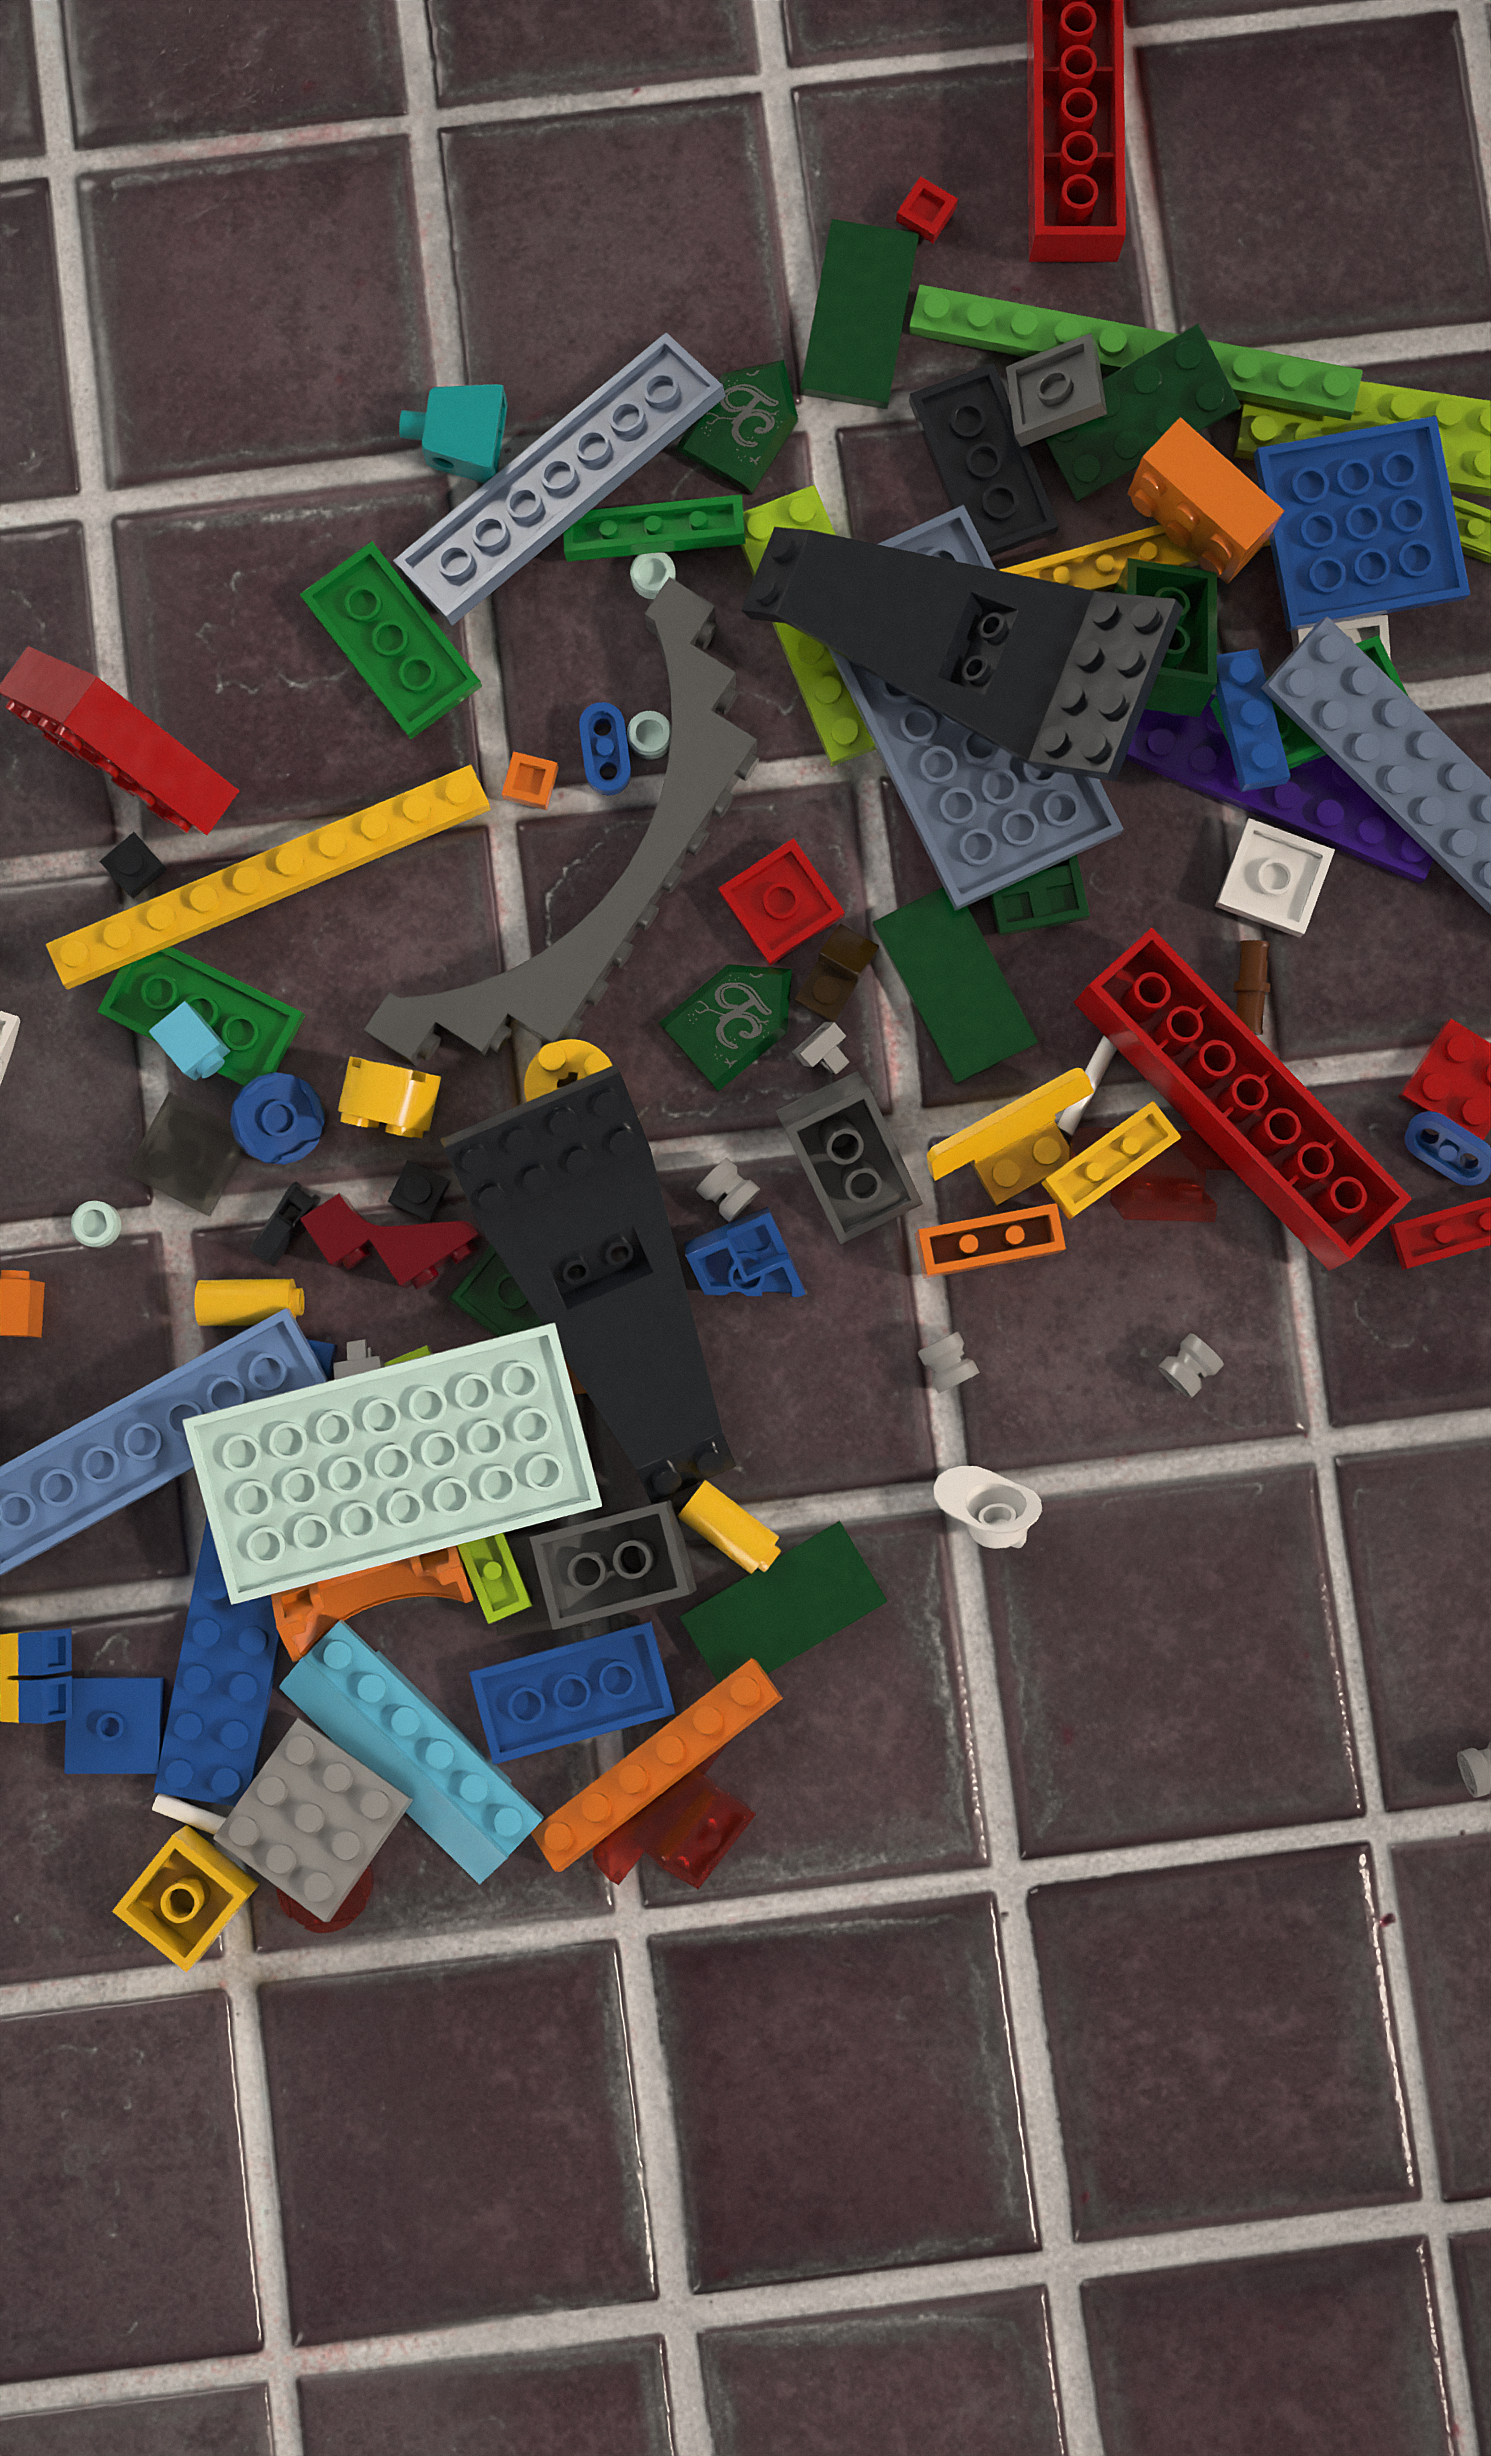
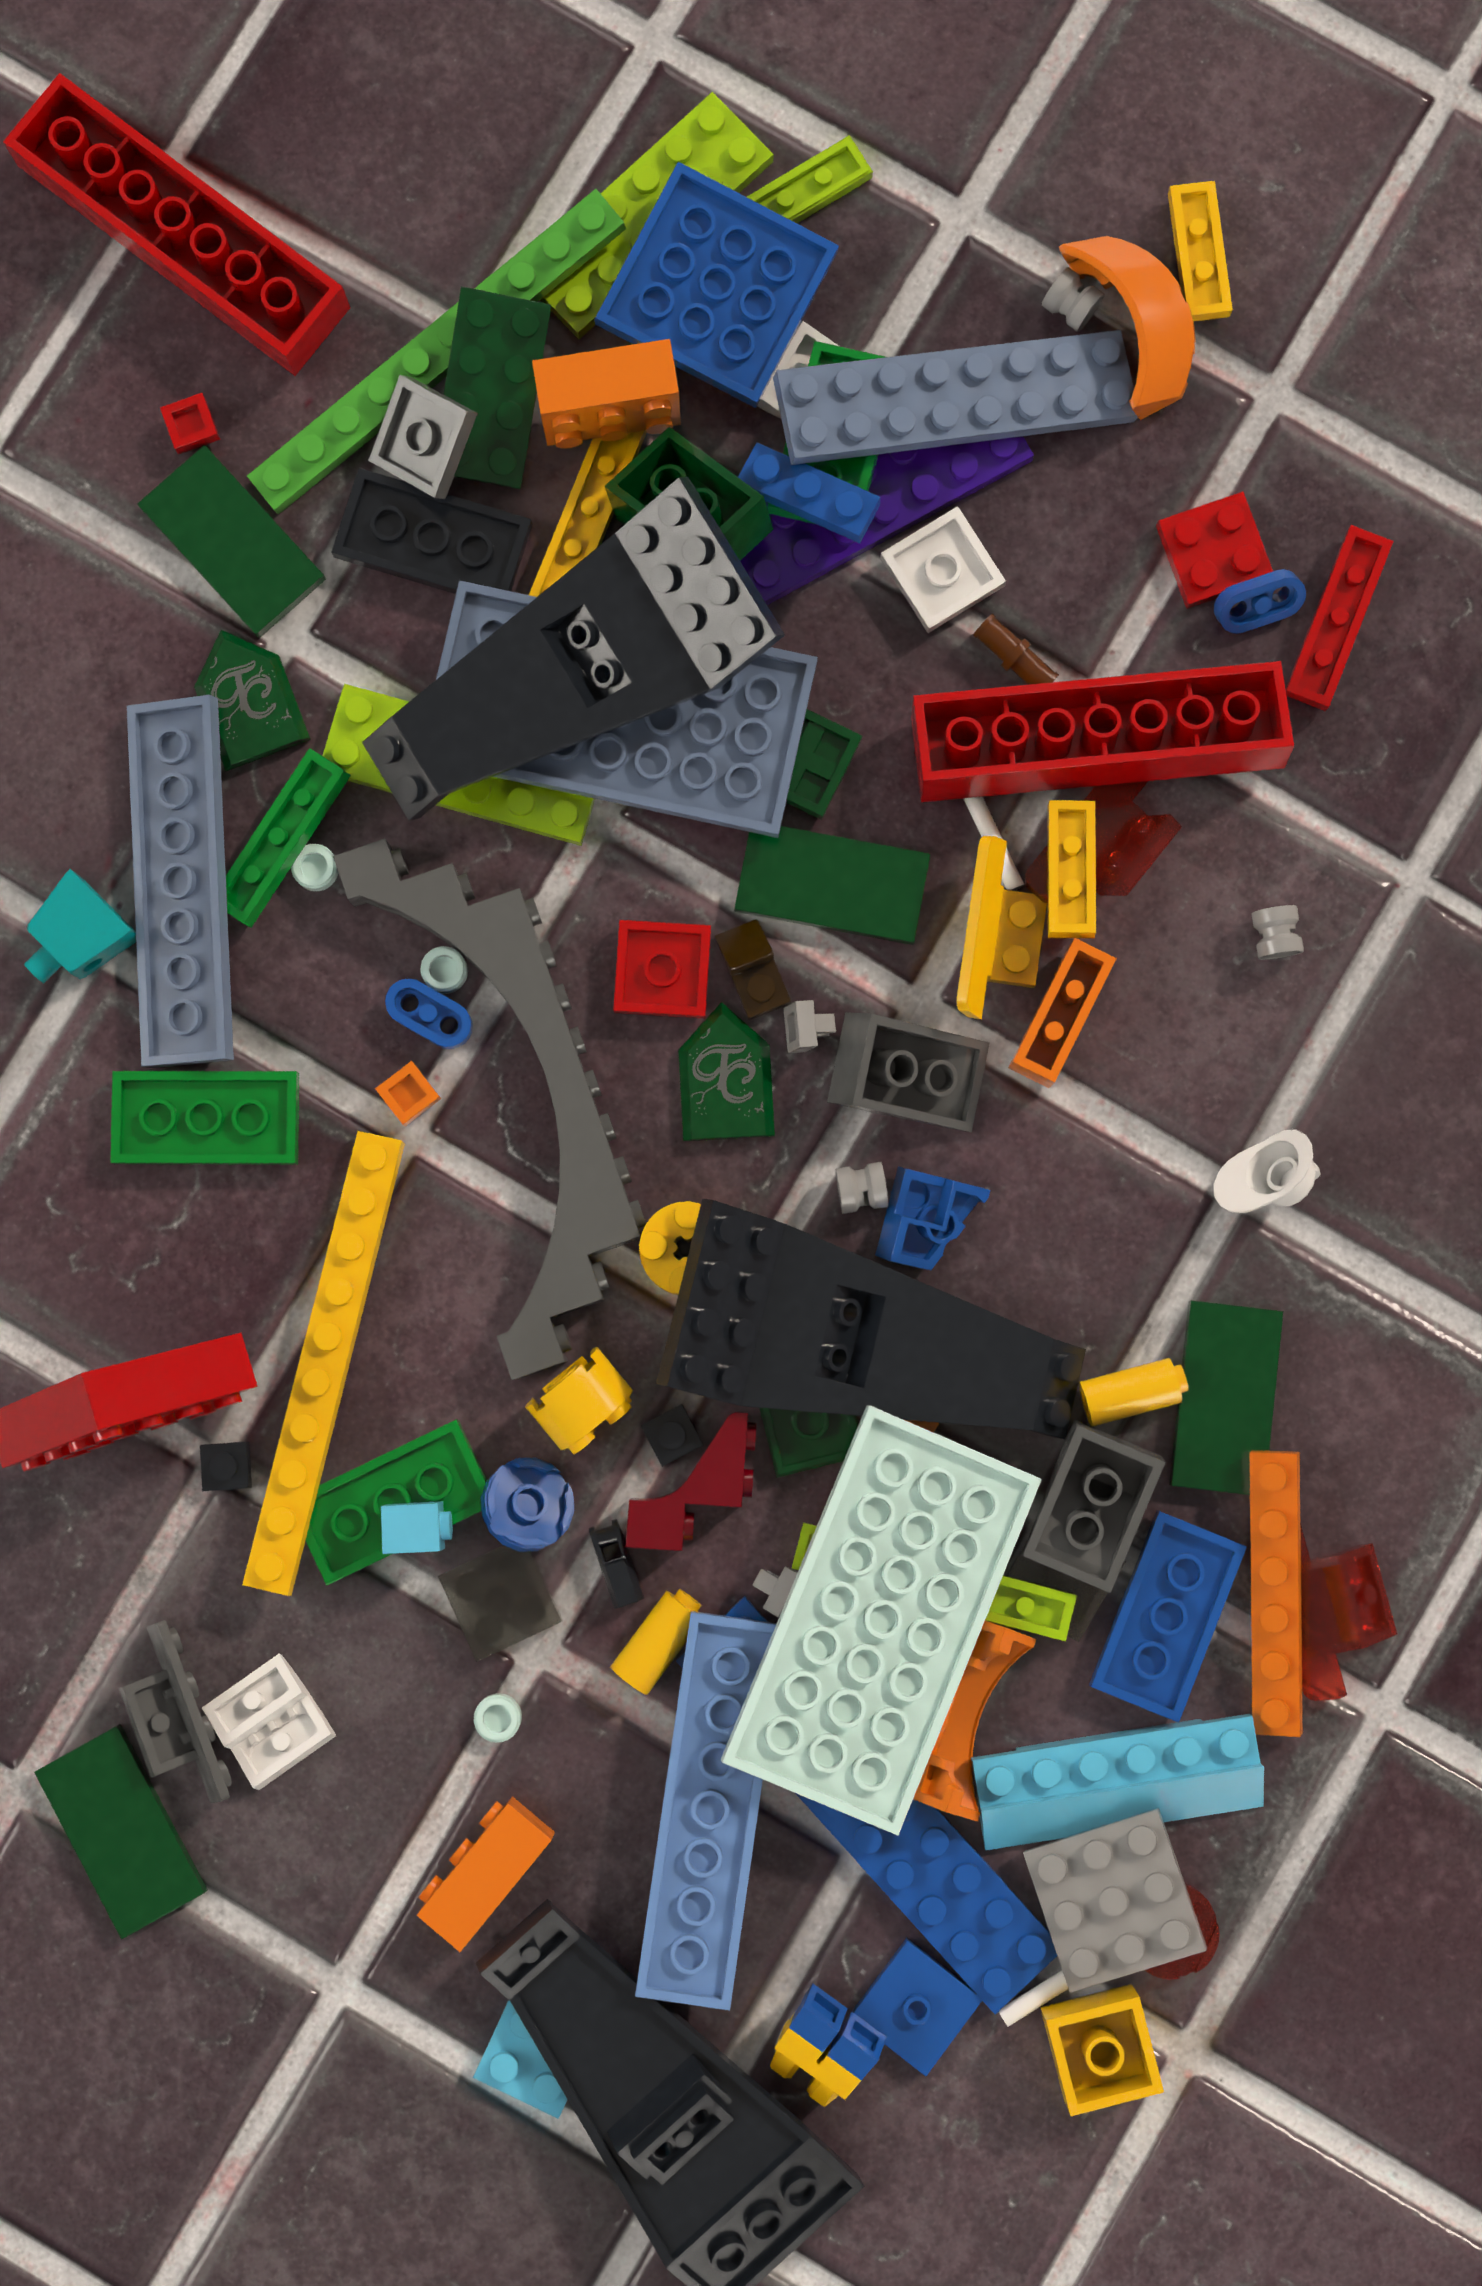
camera: 50 degrees left, 0 degrees up
(948, 1362) = (1127, 1118): light grey wheel -> none

